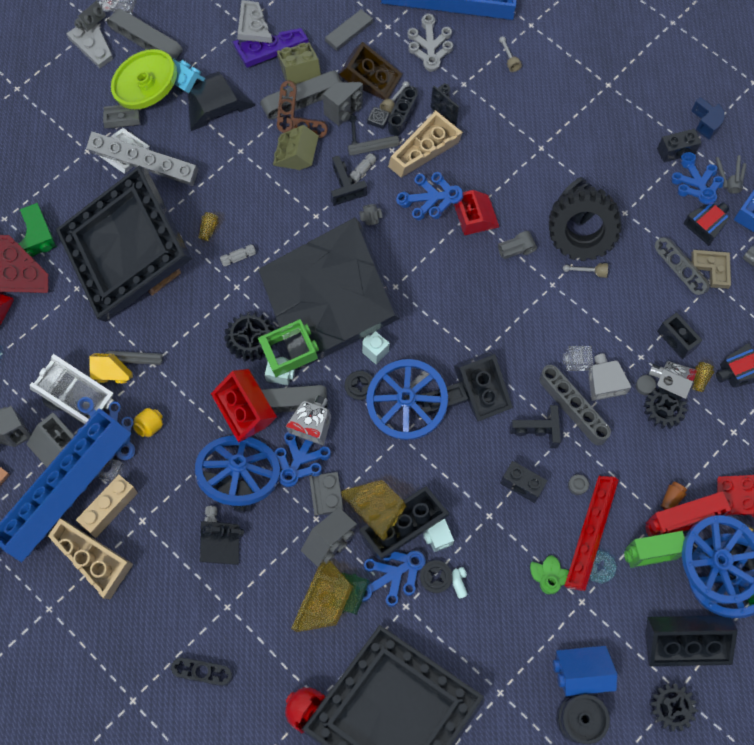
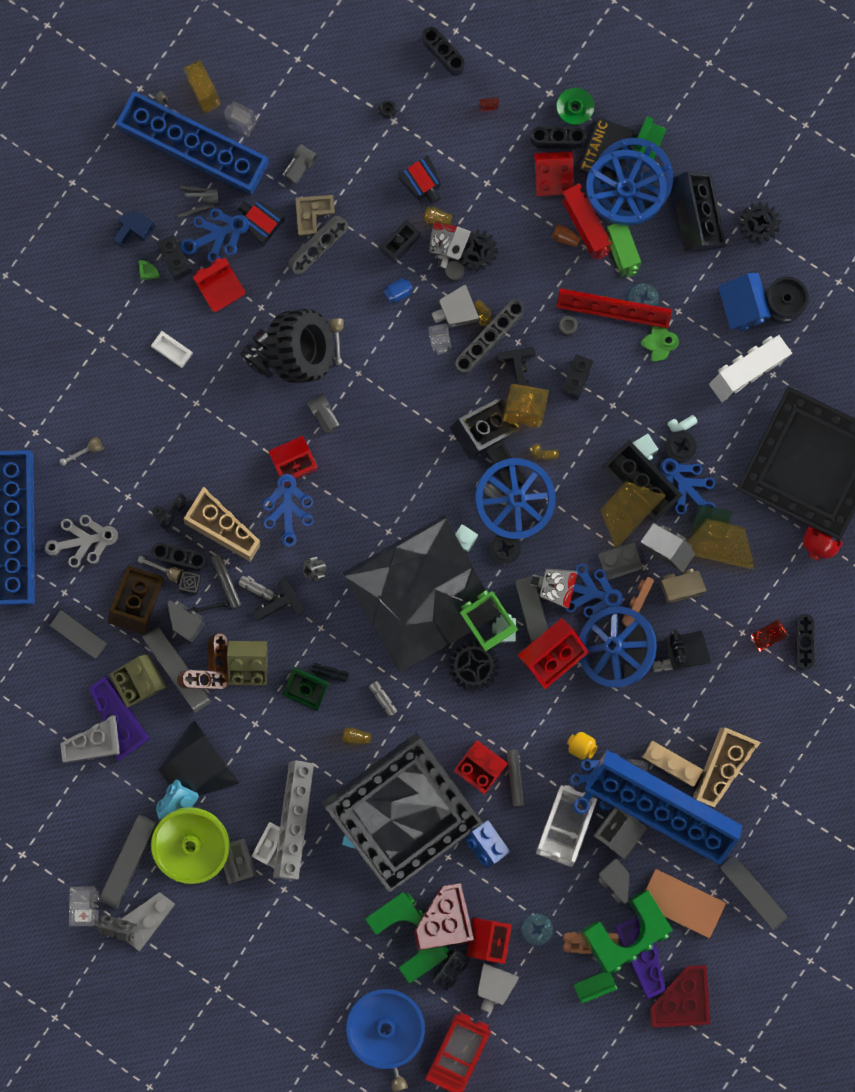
camera: 90 degrees left, 15 degrees up
(77, 322) = (487, 844): none -> bracket
(108, 367) = (534, 797): yellow slope -> none
(151, 325) = (480, 767): none -> red slope
(217, 634) = (769, 635): none -> clear red slope
(263, 193) = (306, 689): none -> dark green slope
(272, 215) = (330, 672): none -> black axle
(280, 502) = (636, 603): none -> nougat hinge
(286, 548) = (682, 586): none -> dark tan slope
(447, 437) = (544, 454): none -> clear yellow arm
(499, 422) = (525, 405): none -> clear yellow slope
(512, 666) = (750, 367): none -> white wedge
(593, 134) = (171, 349): none -> white tile
(601, 406) = (485, 313): none -> clear yellow arm
(630, 328) = (398, 290): none -> blue brick
(651, 178) = (219, 284): none -> red bracket
(668, 126) = (147, 270): none -> bright green tile

